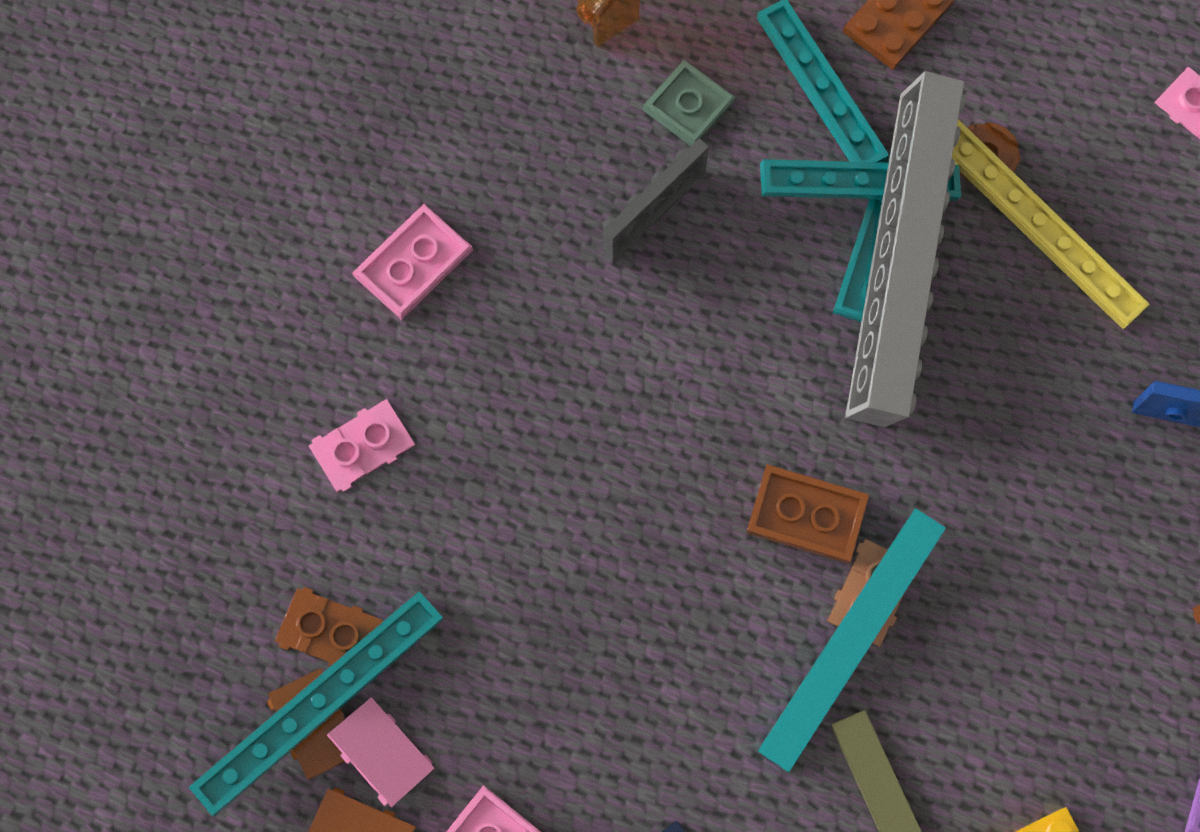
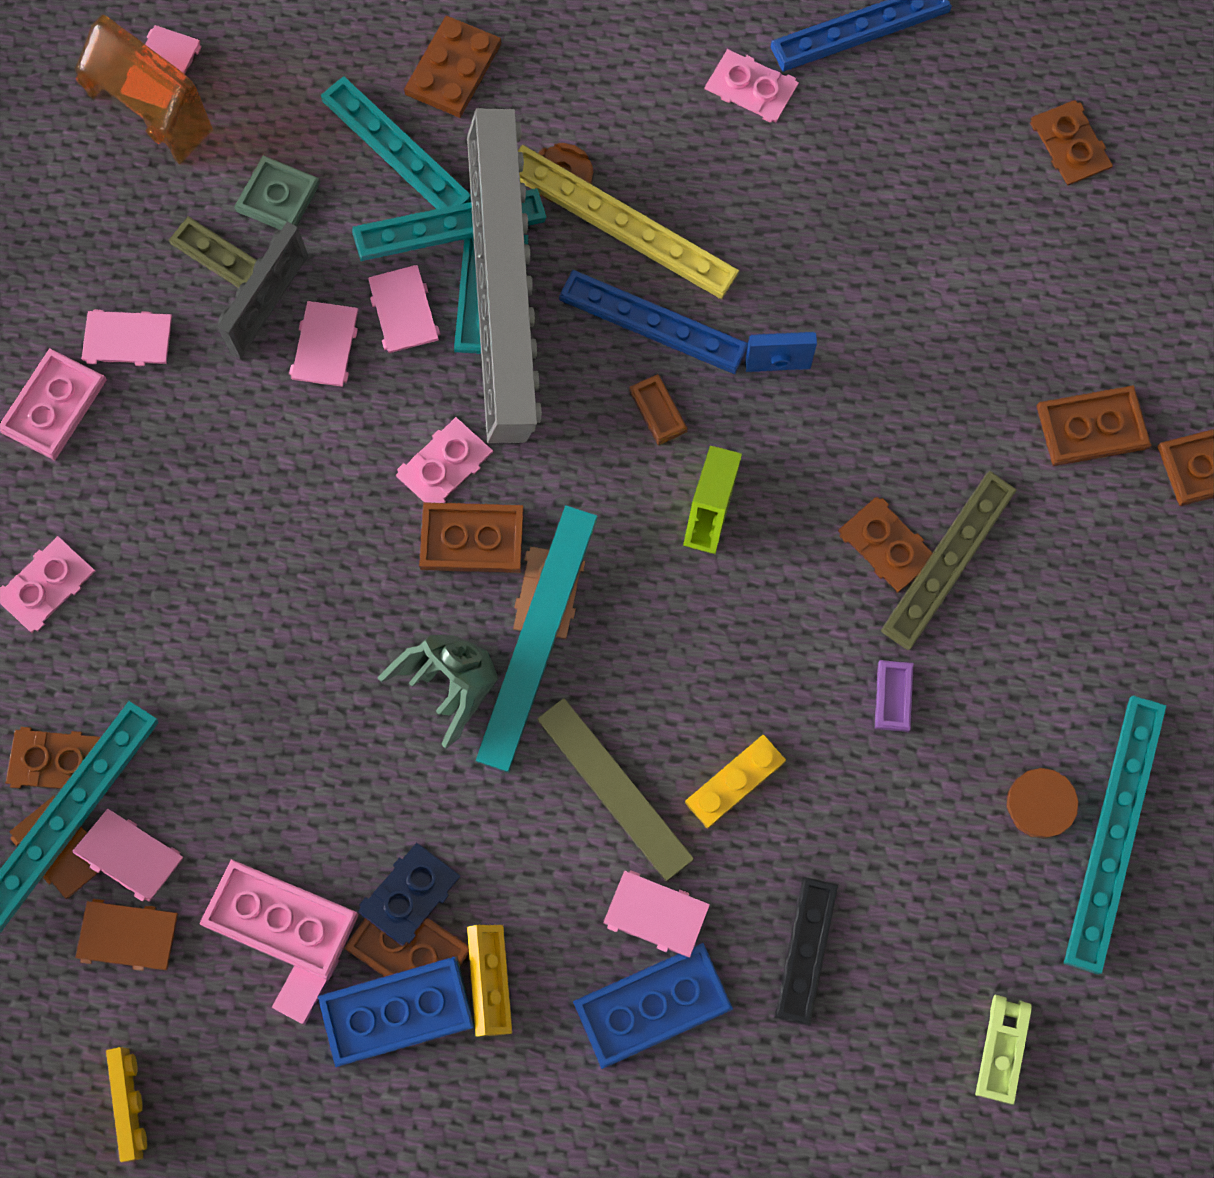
camera: 15 degrees left, 0 degrees up
(503, 212) = (126, 337): none -> bright pink piece
(613, 149) = (213, 252): none -> olive tile
(702, 271) = (324, 344): none -> bright pink piece
(772, 650) = (465, 665): none -> sand green piece
(790, 255) = (403, 309): none -> bright pink piece
(795, 426) = (444, 462): none -> bright pink piece
(1031, 429) = (658, 409): none -> dark orange tile
(1048, 335) = (653, 321): none -> blue tile
(1069, 541) = (712, 499): none -> lime slope

